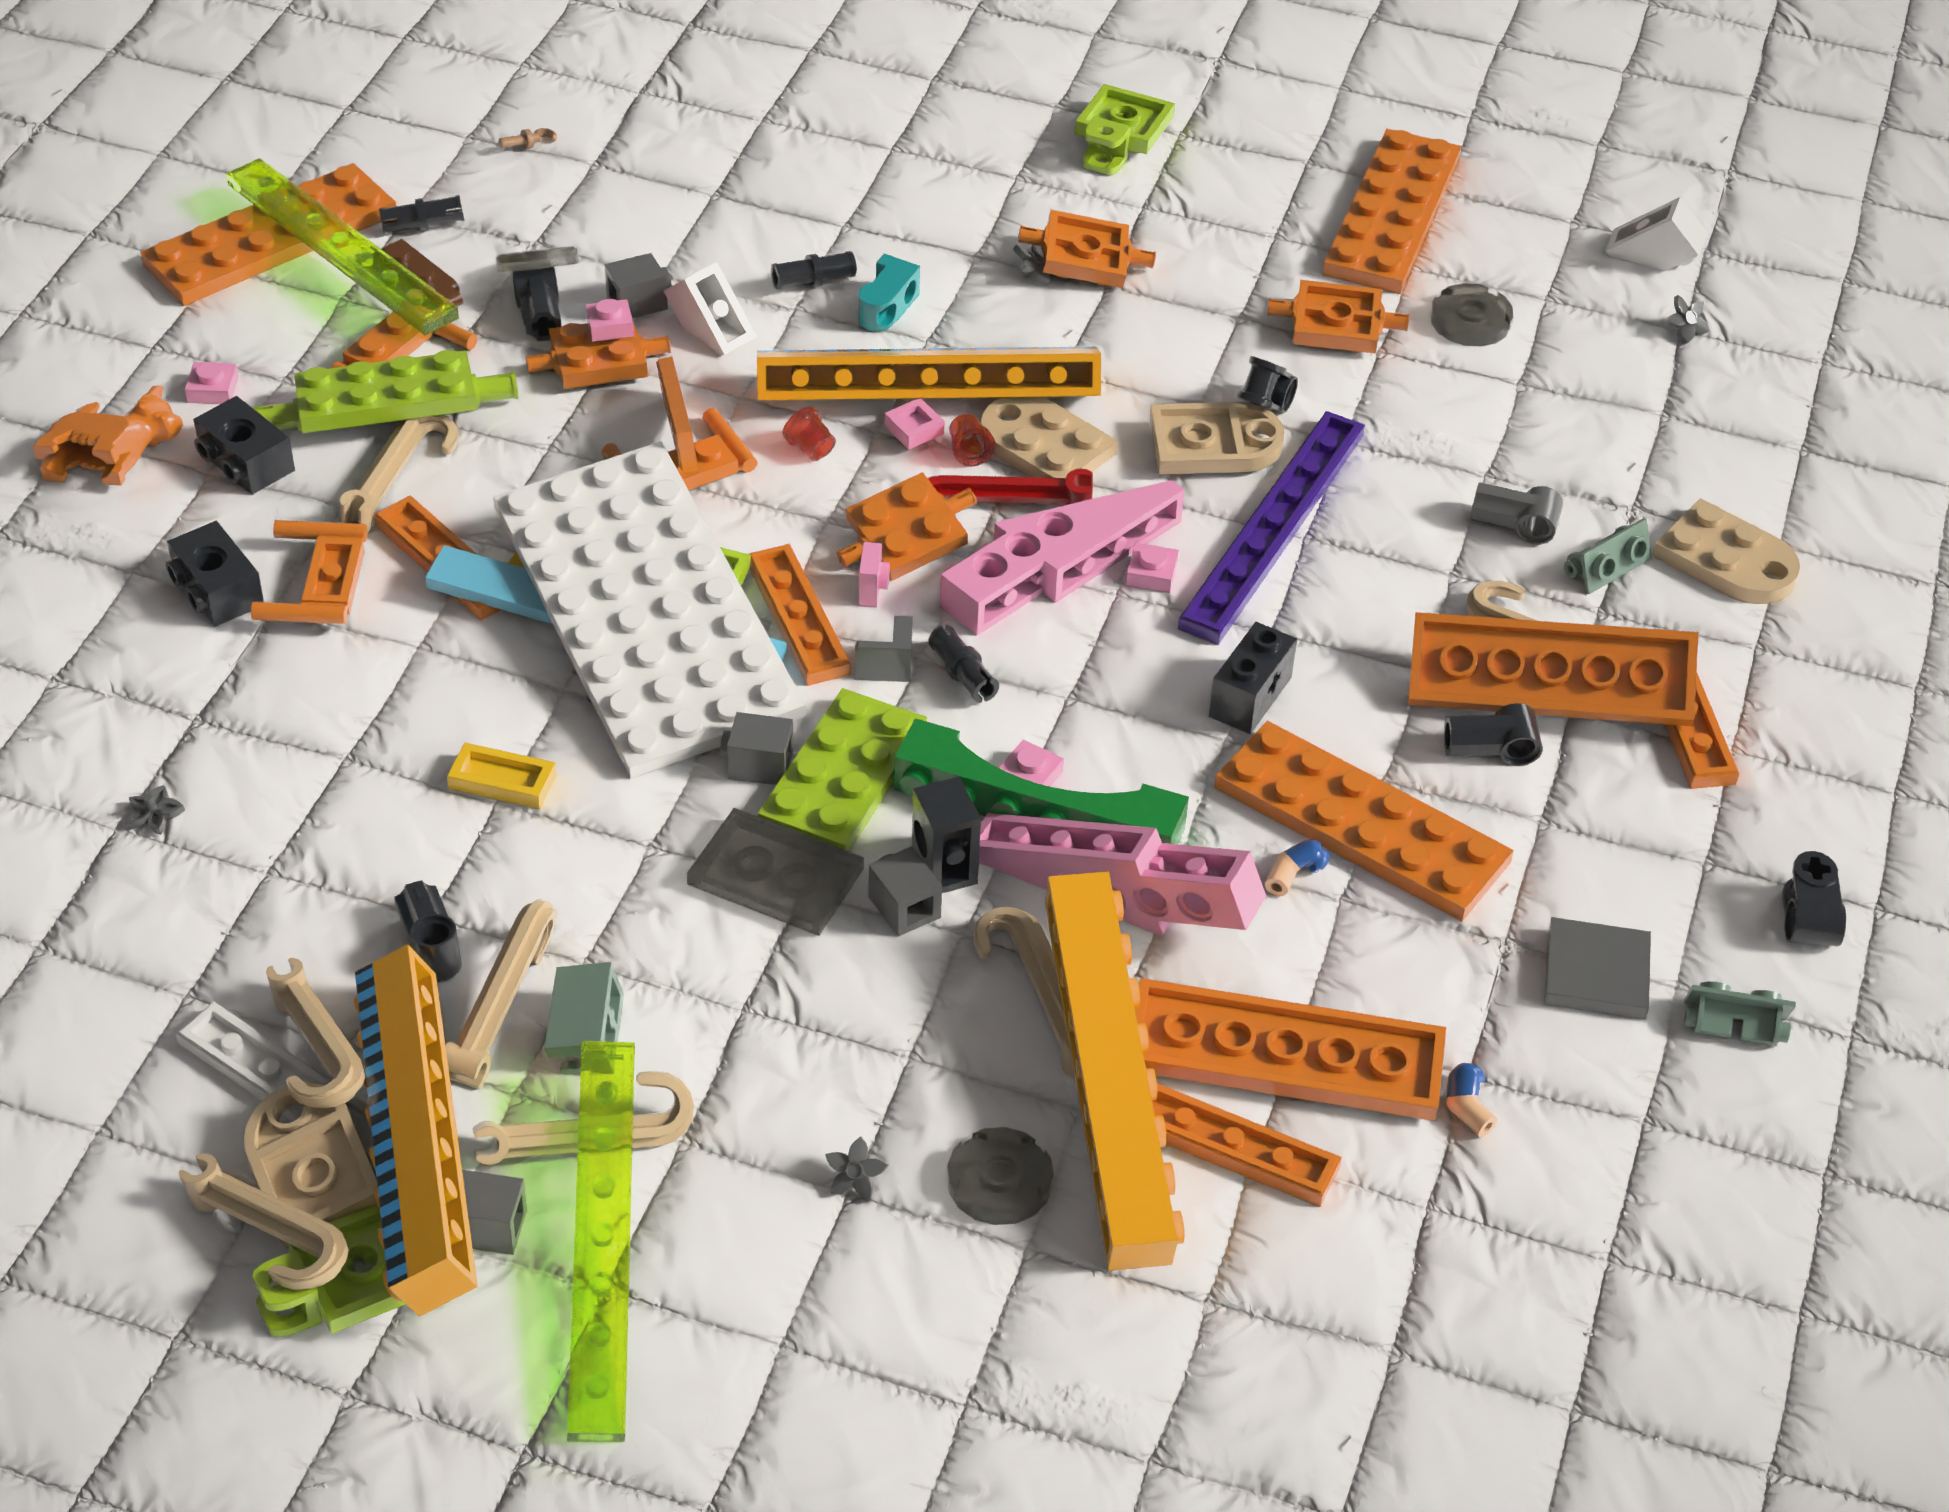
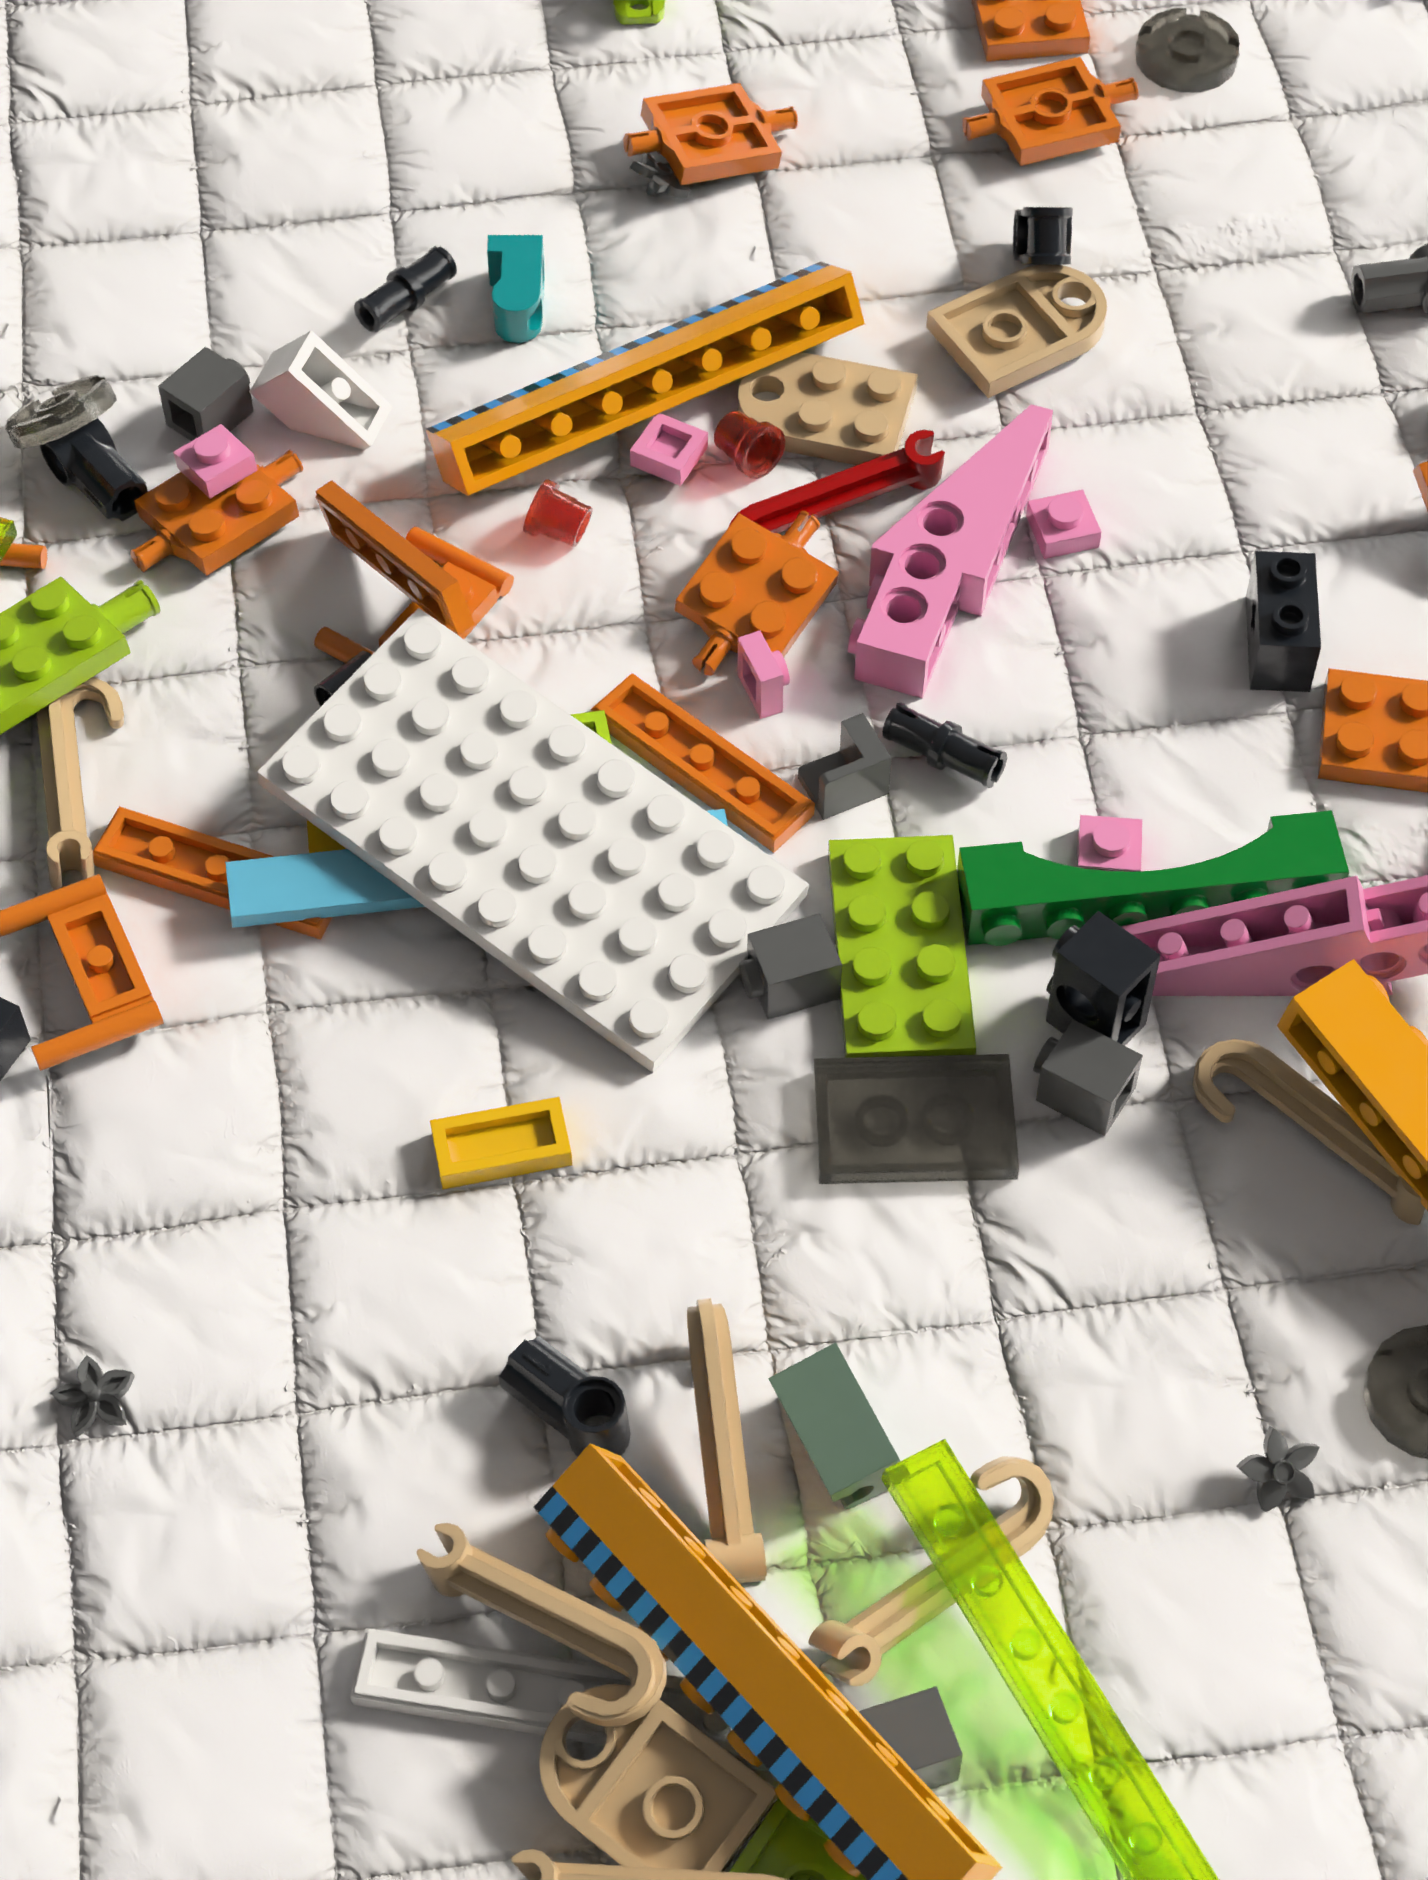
camera: 25 degrees left, 10 degrees up
(1270, 528) = (1158, 417): dark purple tile -> none

